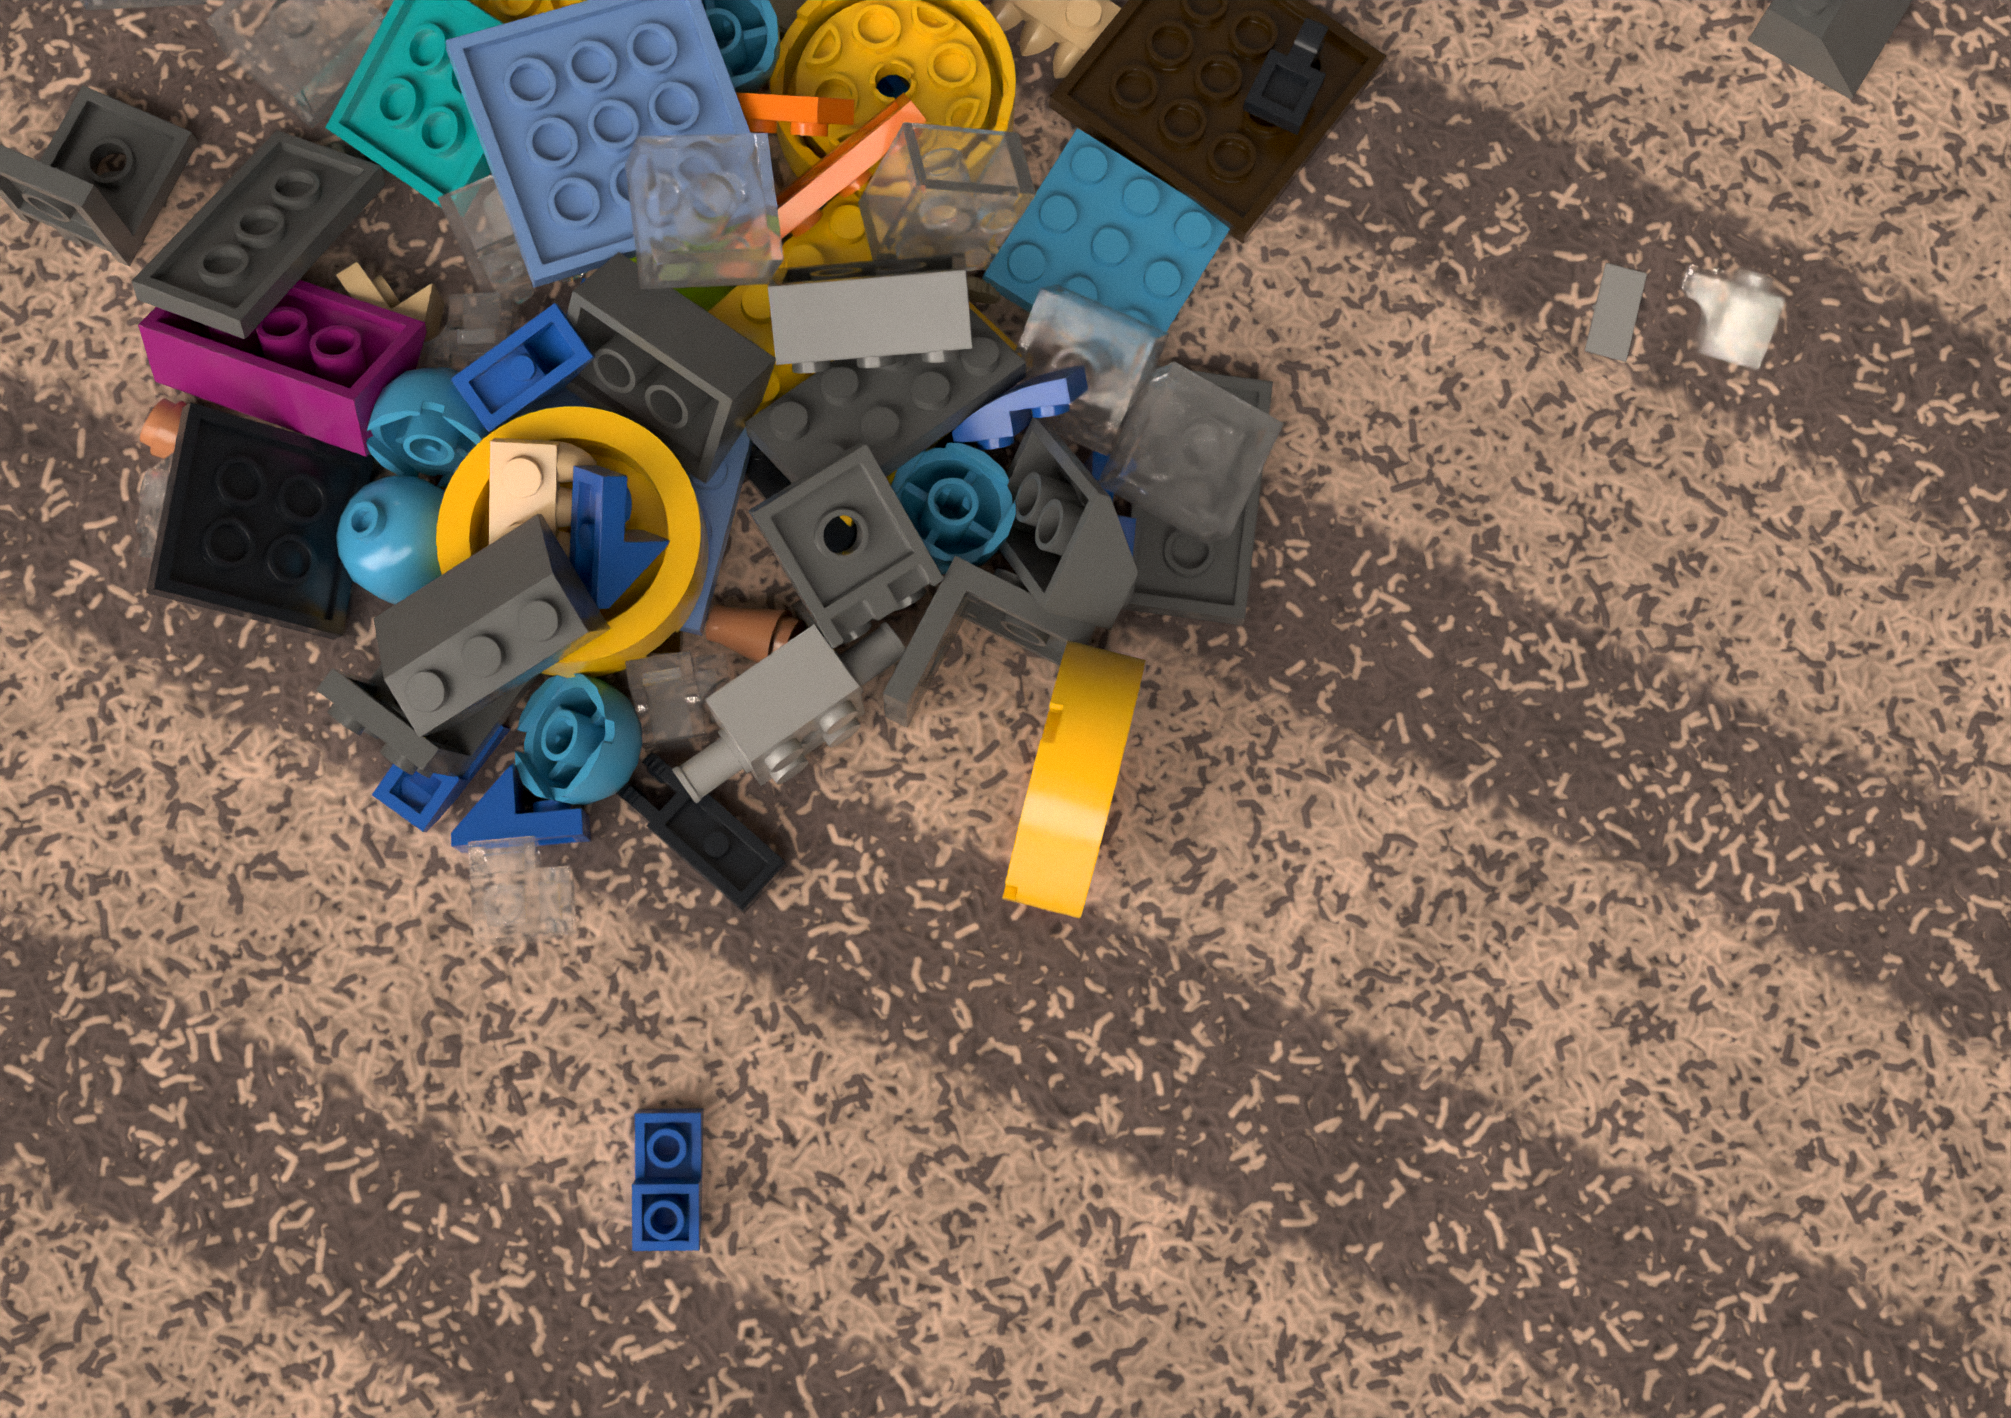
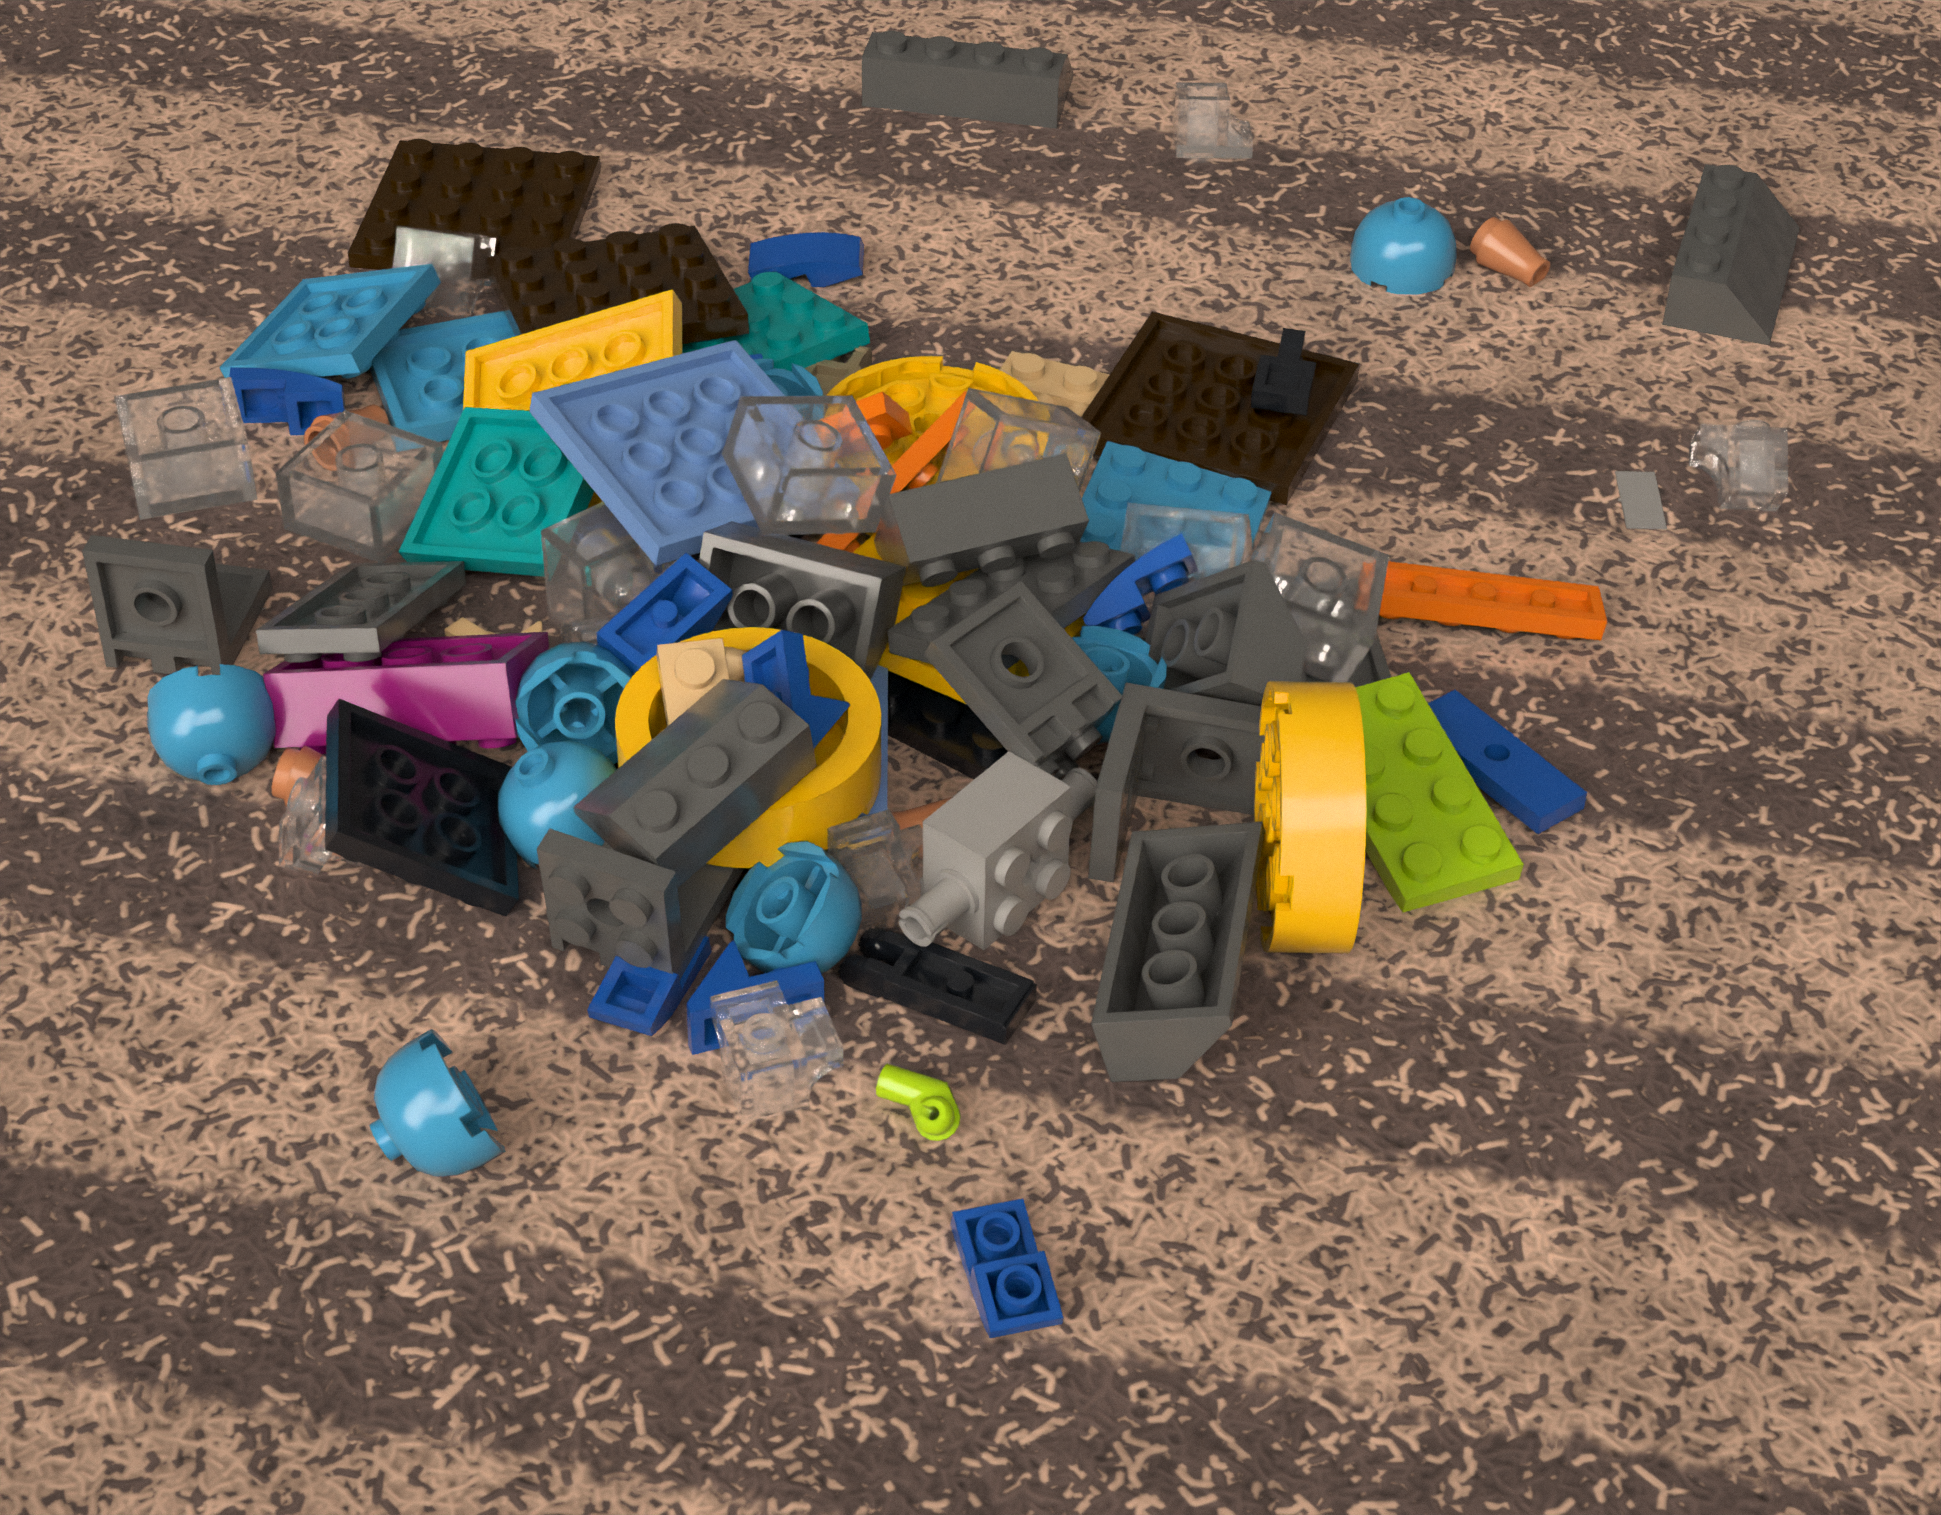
camera: 10 degrees left, 35 degrees down
(90, 359) = (211, 723): none -> dark azure cylinder
(200, 886) = (432, 1111): none -> dark azure cylinder
(655, 968) = (927, 1098): none -> lime arm
(918, 868) = (1176, 948): none -> dark grey slope
(1214, 695) = (1423, 810): none -> lime plate
(1305, 632) = (1507, 766): none -> blue tile
(1389, 447) = (1493, 601): none -> orange plate

